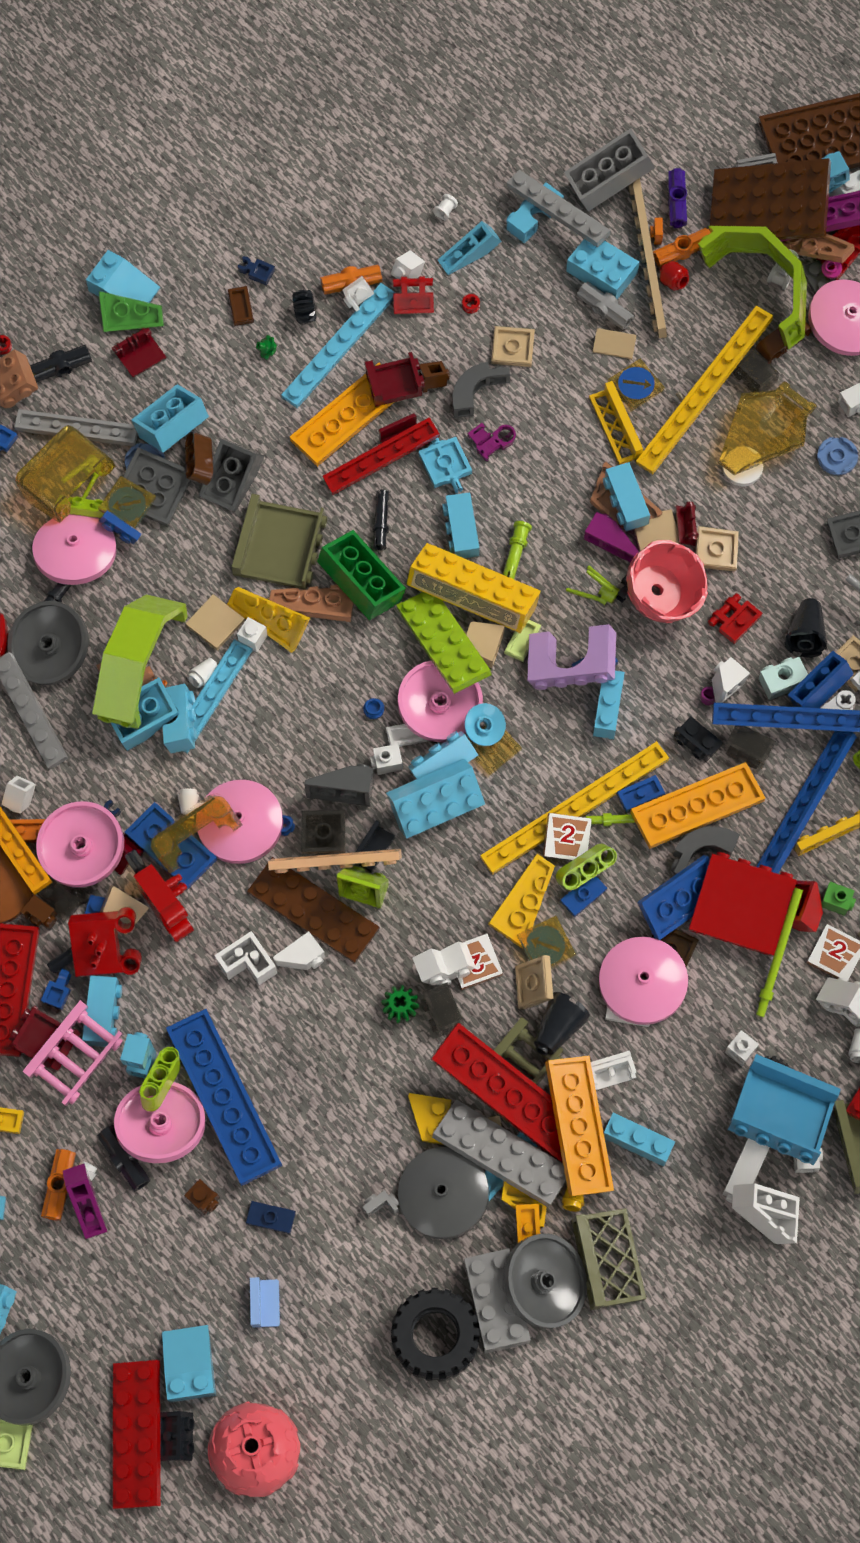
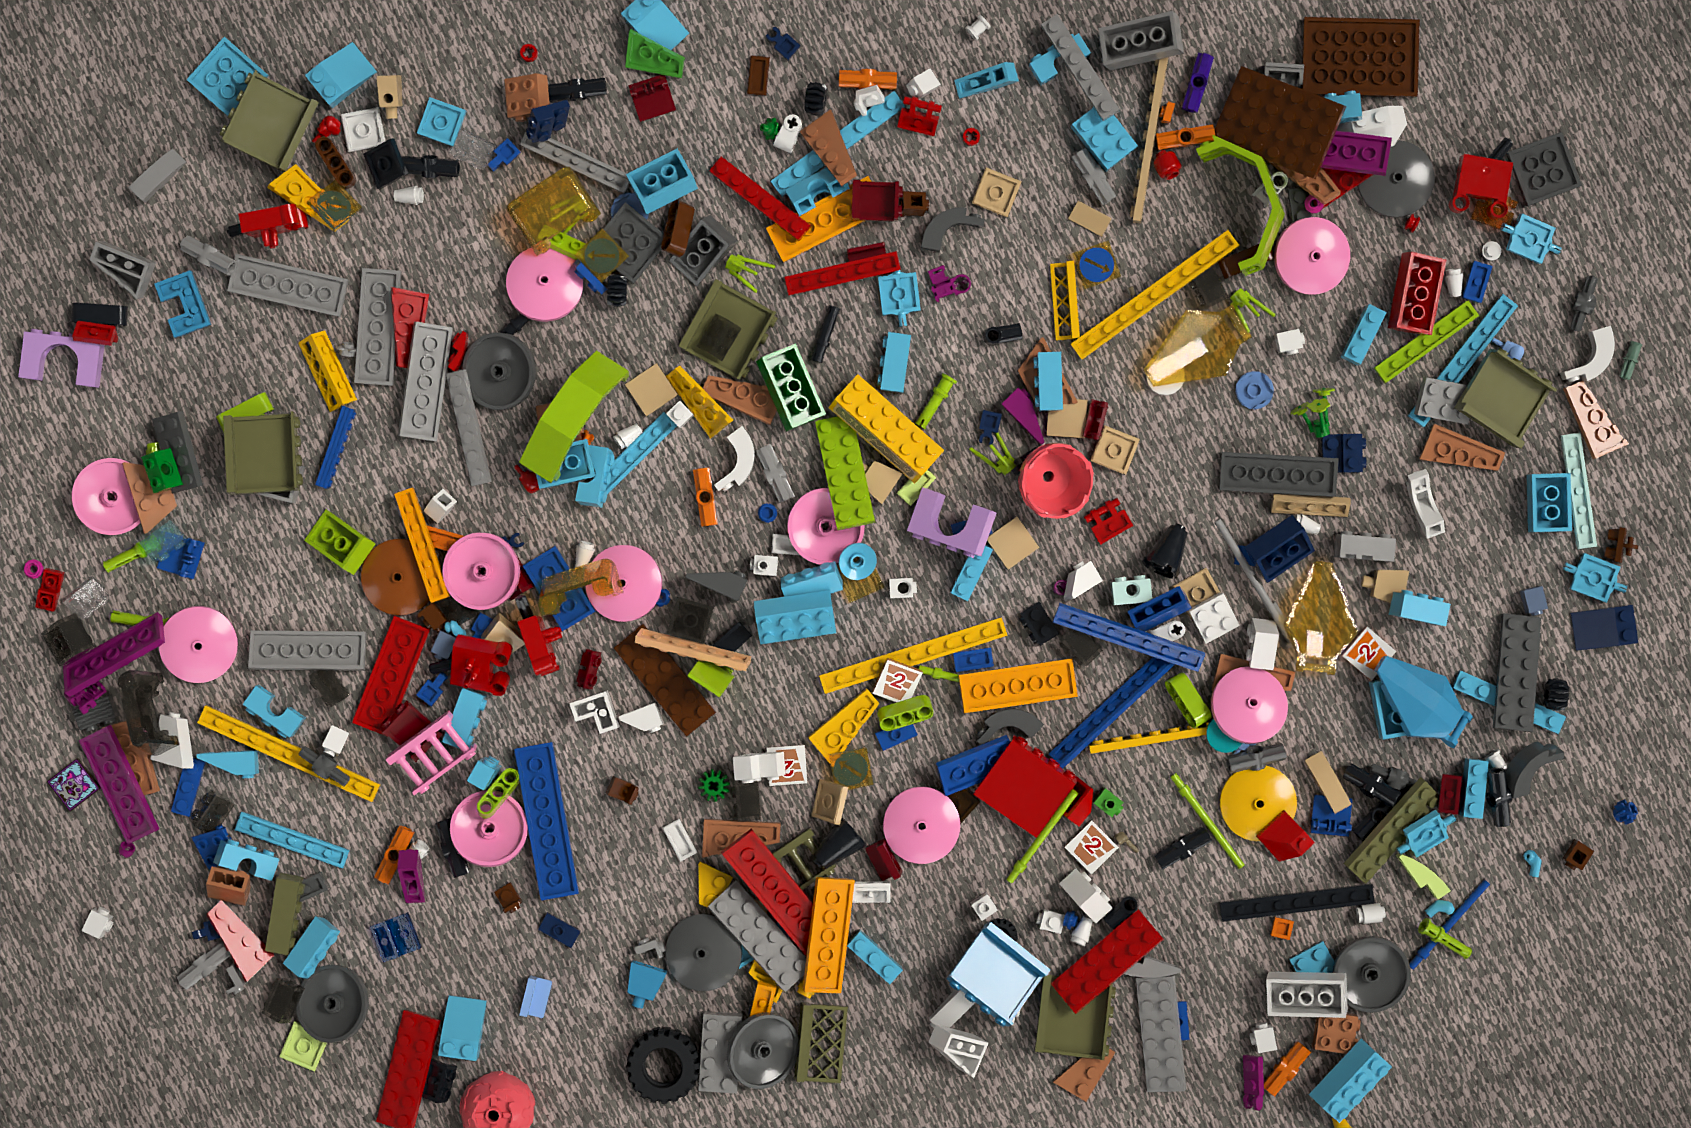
camera: 15 degrees right, 20 degrees up
(37, 391) = (546, 119): none -> dark blue plate
(58, 938) = (443, 645): none -> sand blue brick
(63, 913) = (455, 628): none -> medium azure arm
(83, 1281) = (395, 937): none -> clear blue slope
(109, 745) = (528, 480): none -> red piece
(152, 533) = (616, 290): none -> black gear
(226, 910) = (592, 660): none -> dark red hinge
(269, 479) = (736, 264): none -> lime plant
(271, 549) = (719, 337): none -> clear smoke bracket
(275, 411) = (760, 198): none -> red plate
(286, 347) = (786, 136): none -> white piece
(299, 1038) = (622, 790): none -> reddish brown bracket
(308, 719) = (703, 484): none -> orange piece
(330, 650) = (745, 459): none -> white arch
(331, 343) = (826, 141): none -> nougat wing
(340, 376) = (803, 193): none -> medium azure arch
(370, 666) = (775, 473): none -> light grey piece
(379, 1077) = (679, 840): none -> white tile
(385, 1246) = (644, 982): none -> dark azure torso
(418, 1054) = (721, 833): none -> nougat wing
(536, 749) = (894, 593): none -> white brick
(564, 470) = (1004, 334): none -> black piece
(579, 559) = (989, 423): none -> dark blue plate
(613, 1031) = (884, 860): none -> dark red panel
(643, 667) = (1012, 543): none -> tan tile
(793, 375) = (1241, 299): none -> lime plant
(821, 1045) = (1050, 921): none -> white bracket
(842, 1036) = (1070, 919): none -> blue plate

